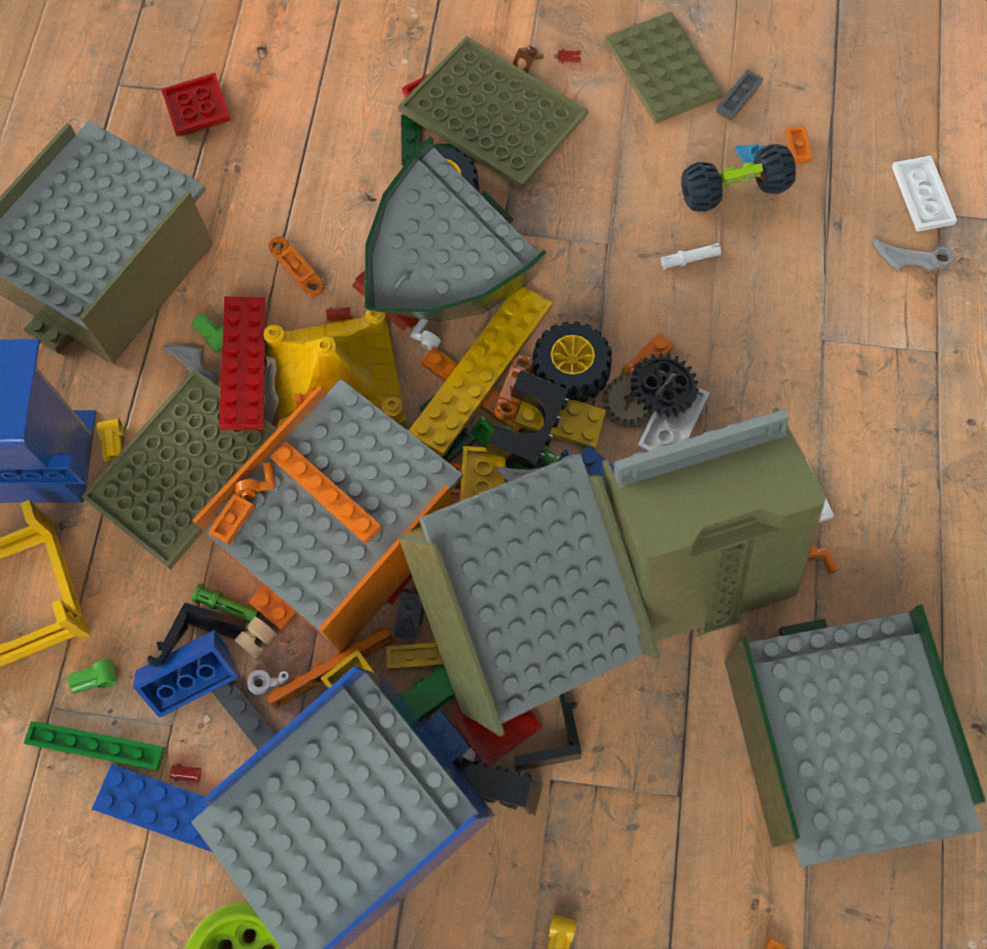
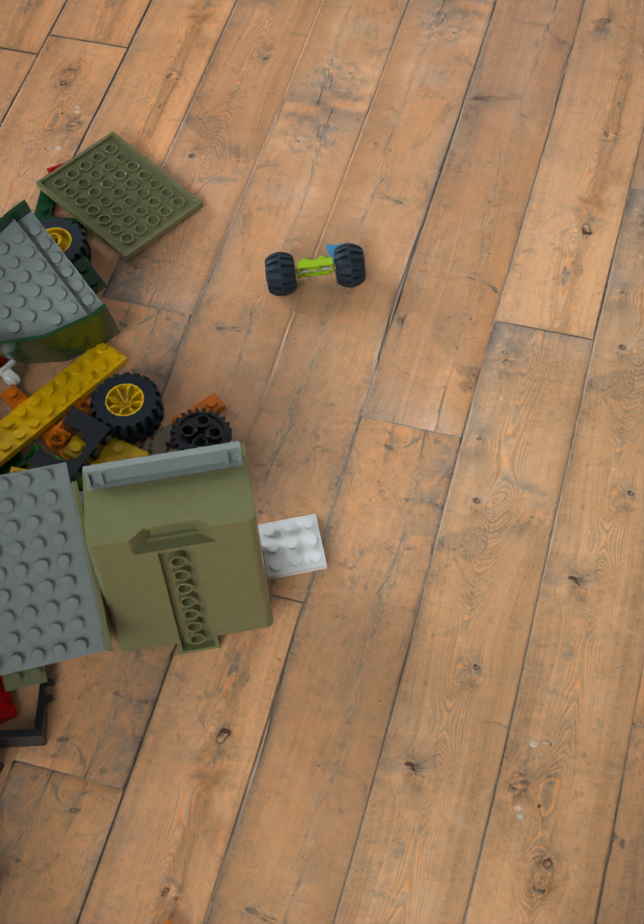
camera: 10 degrees right, 10 degrees down
(528, 54) = (162, 151): reddish brown bracket -> none
(567, 56) = (199, 156): clear red pin -> none
(663, 67) = (281, 173): olive plate -> none
(682, 257) = (258, 332): white pin -> none
(739, 95) = (340, 202): dark grey plate -> none
(799, 144) = (381, 248): orange plate -> none
(825, 553) = (294, 595): orange plate -> none
(854, 737) = (268, 743): light grey piece -> none
(900, 257) = (448, 353): light grey piece -> none
(924, 193) = (483, 300): white plate -> none

